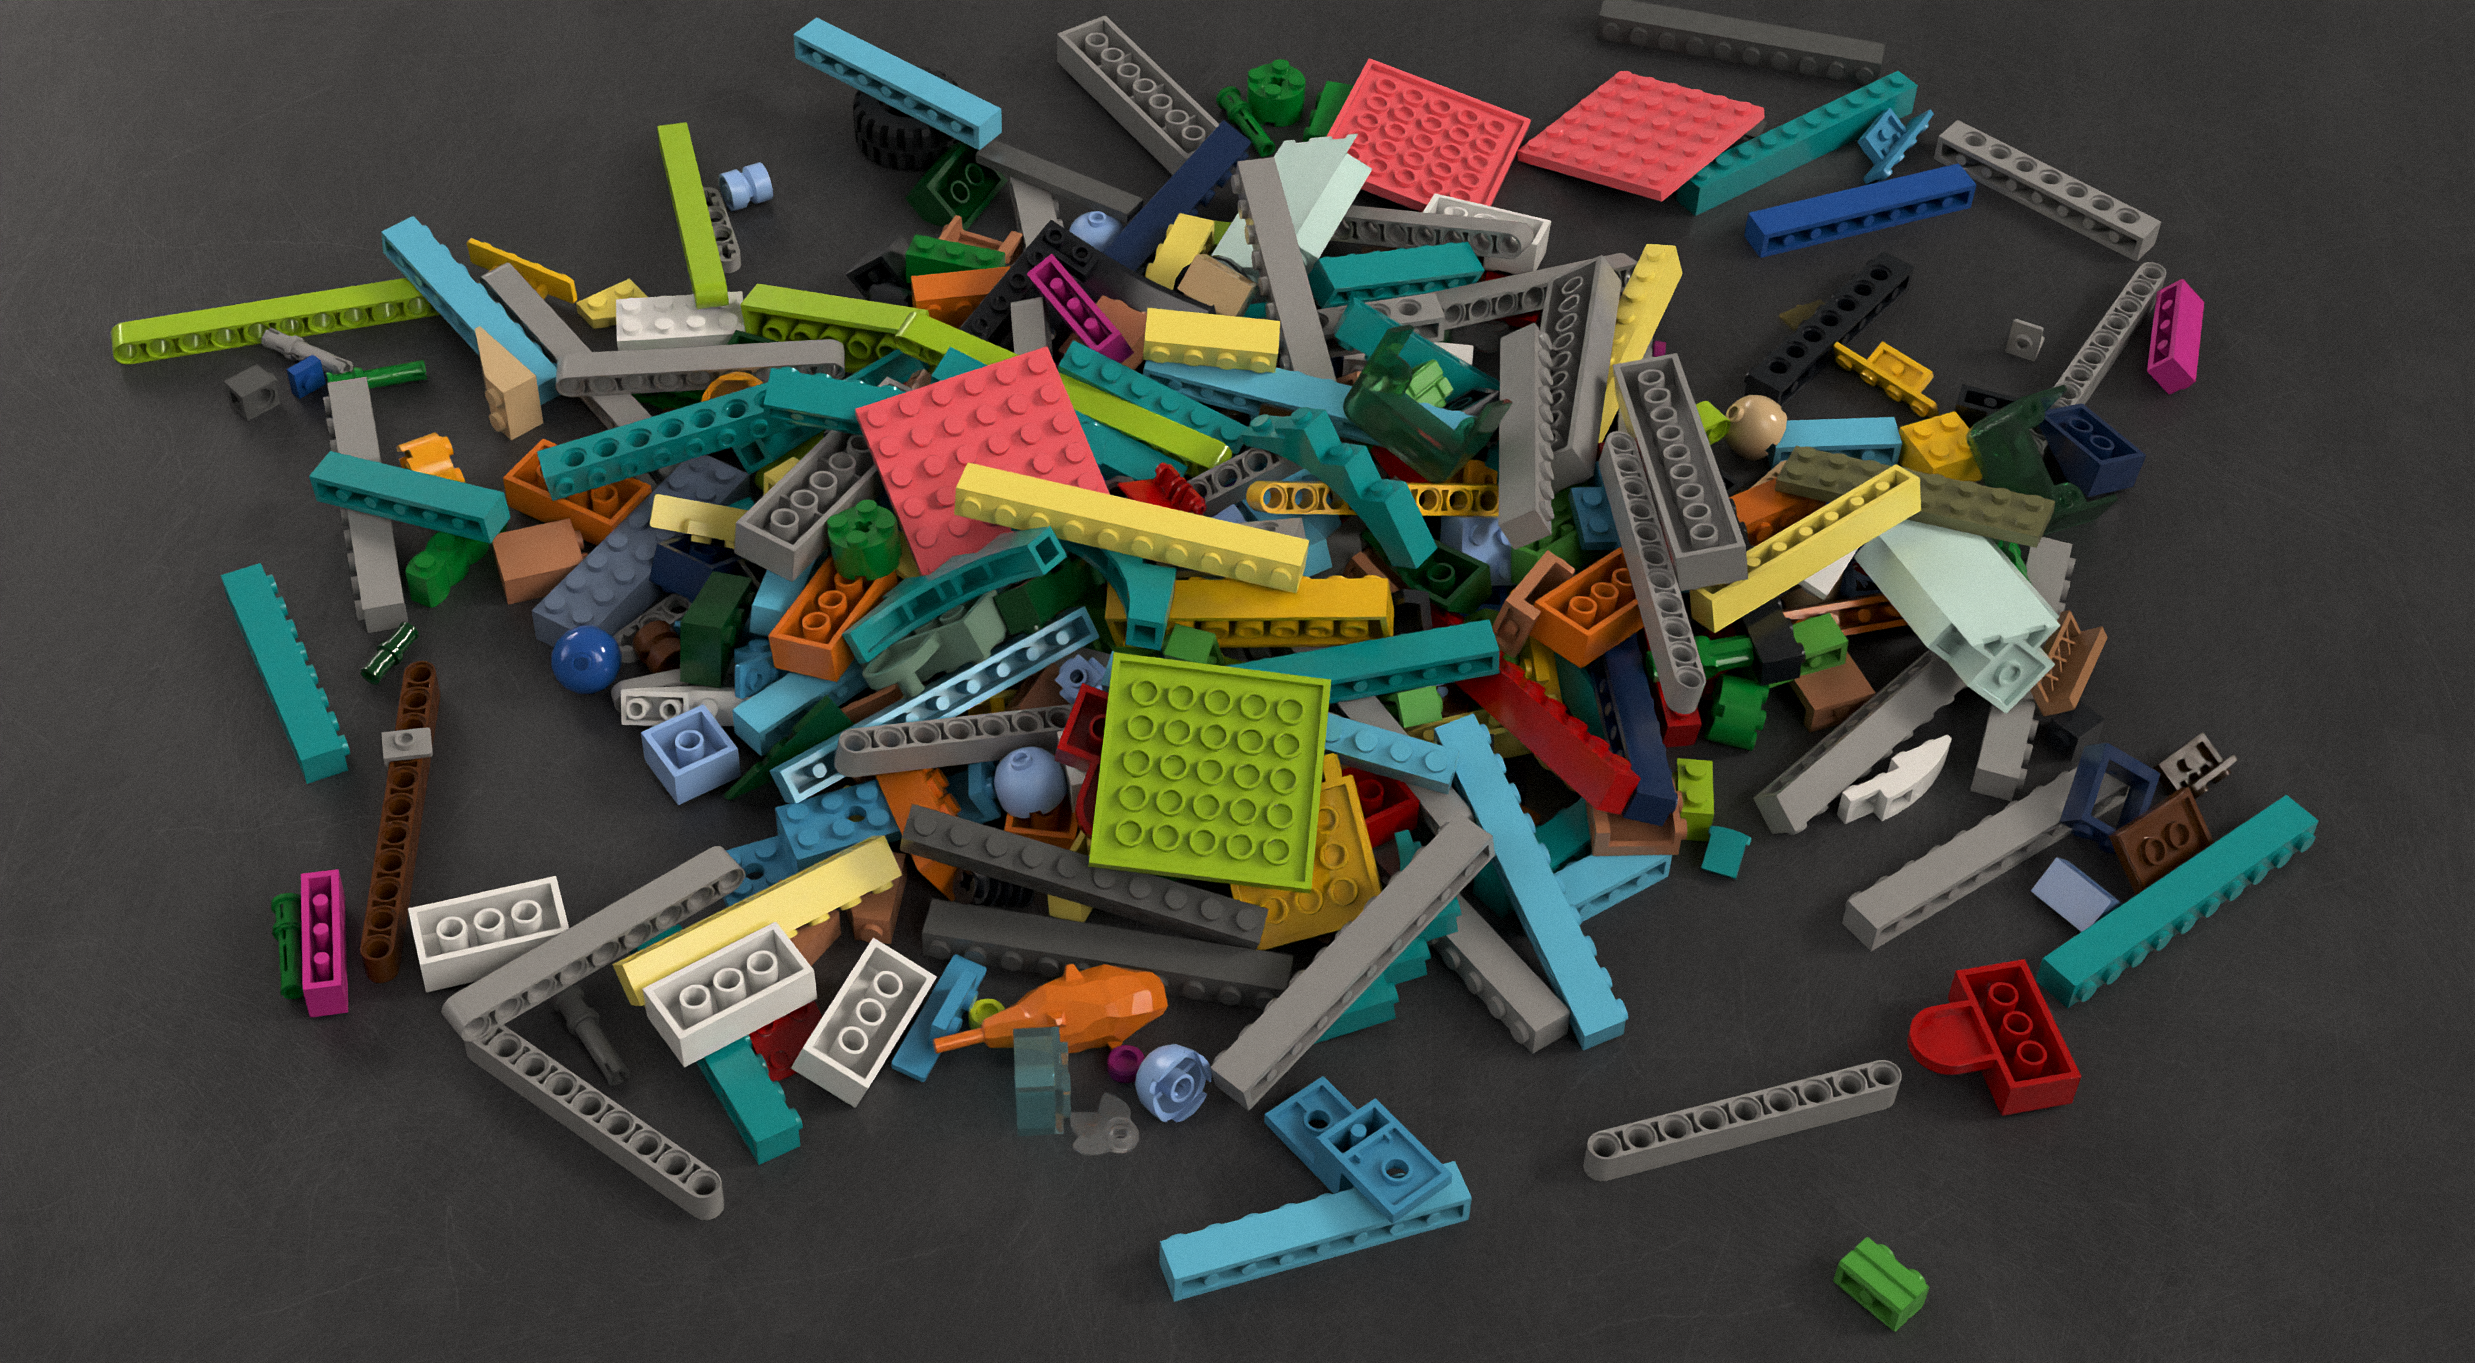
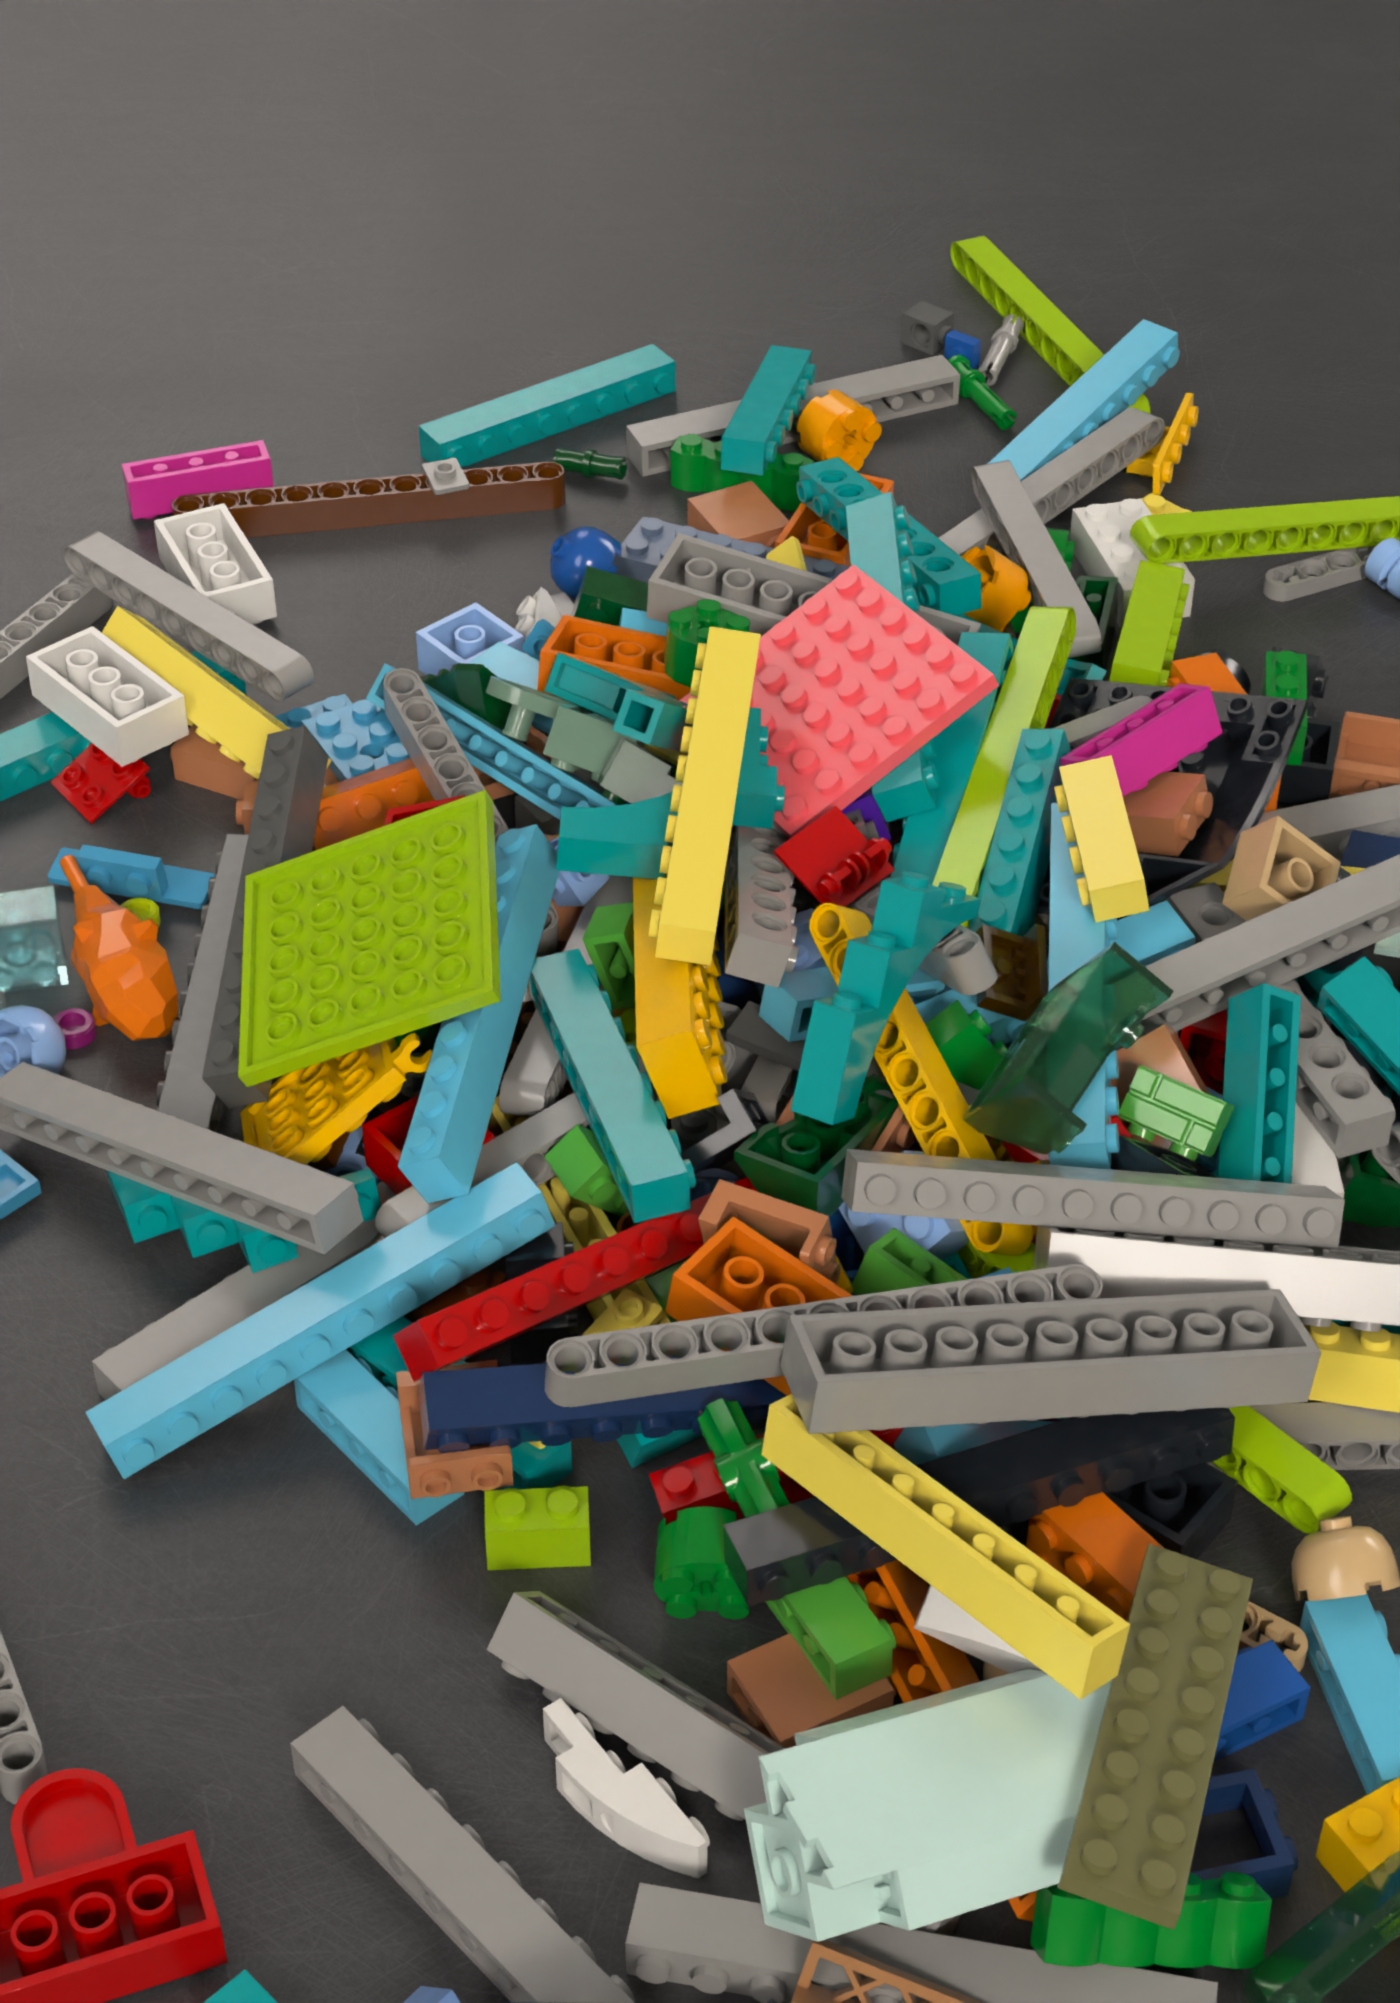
camera: 85 degrees right, 5 degrees down
(509, 388) = (971, 443): tan slope -> none
(863, 1022) = (99, 804): white brick -> none
(1725, 851) = (452, 1571): teal tile -> none

